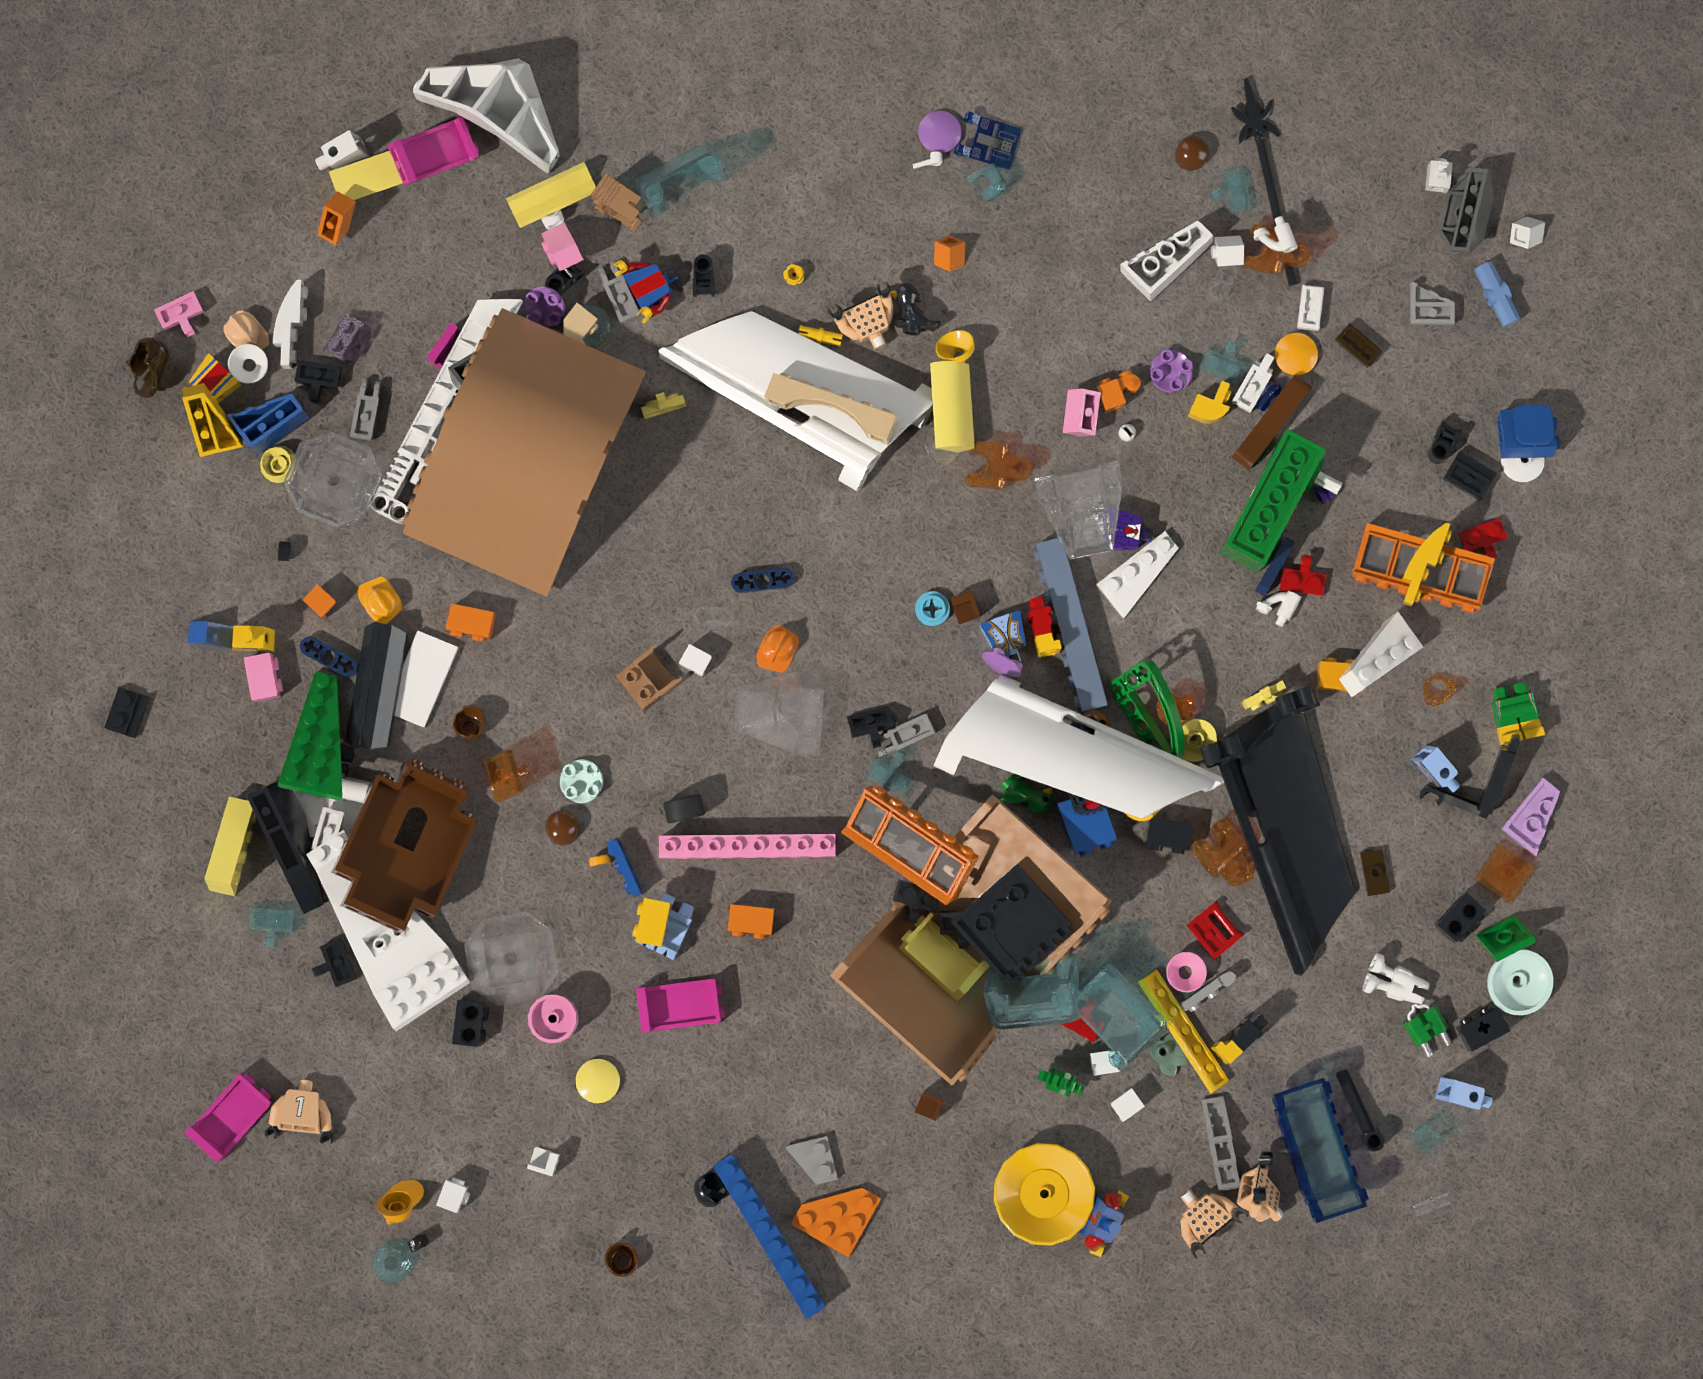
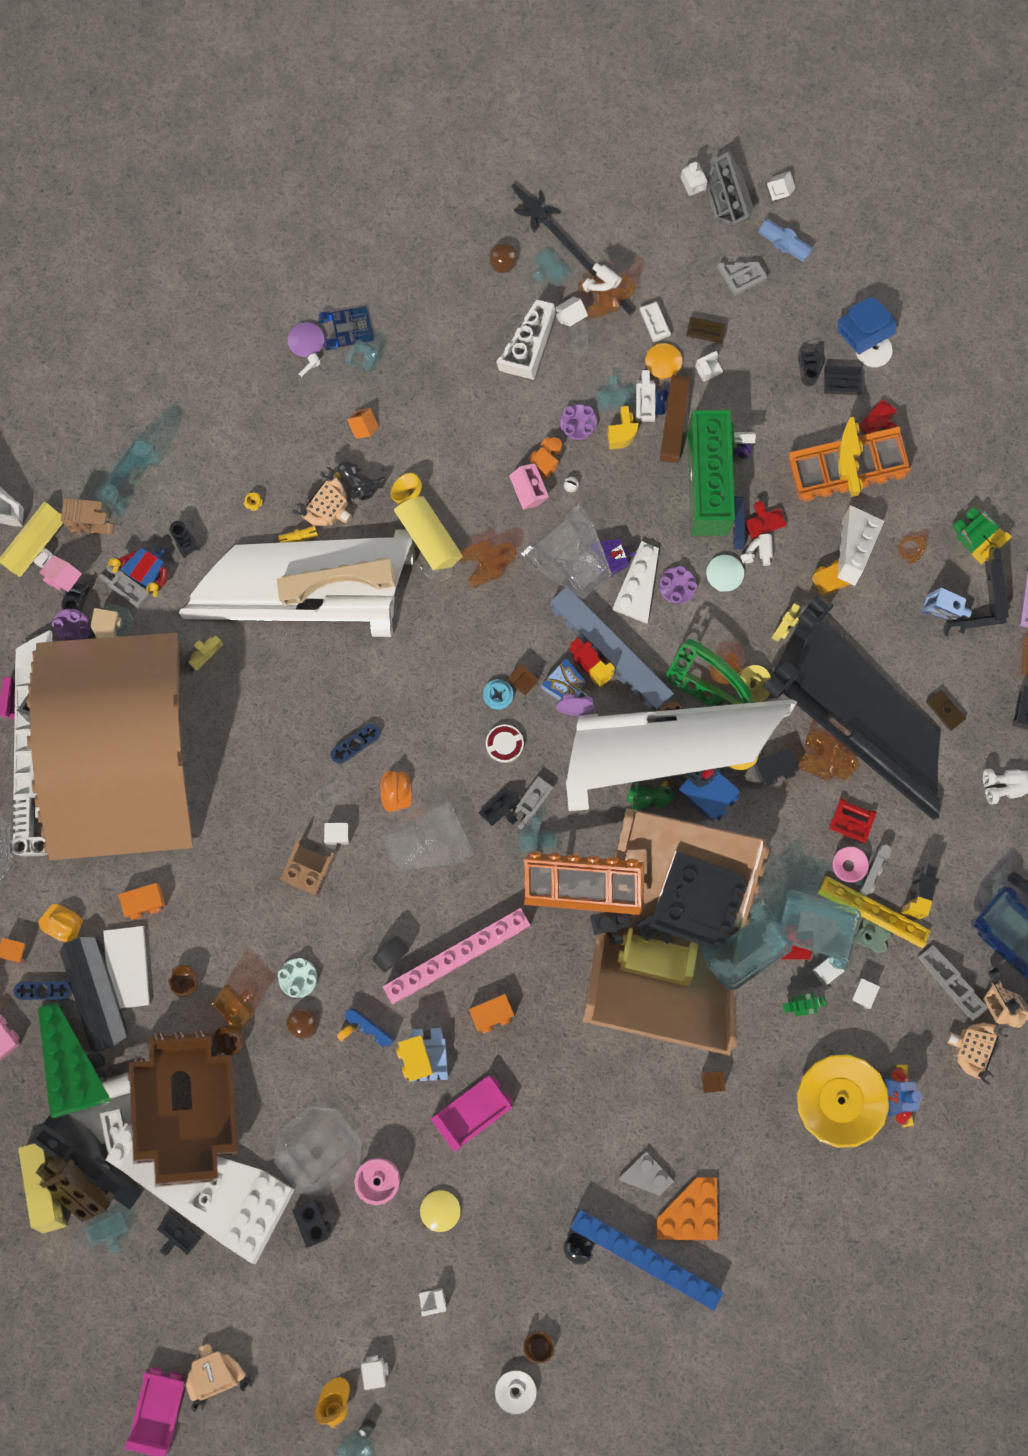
camera: 30 degrees left, 5 degrees down
(262, 864) = (73, 1189): none -> dark brown hips
(484, 804) = (229, 1039): none -> reddish brown hair
(576, 1300) = (515, 1403): none -> white dish
(911, 661) = (504, 743): none -> white tile
(1176, 596) = (677, 585): none -> medium lavender dish
(1231, 610) = (725, 573): none -> light aqua dish
(1339, 386) = (708, 366): none -> white panel

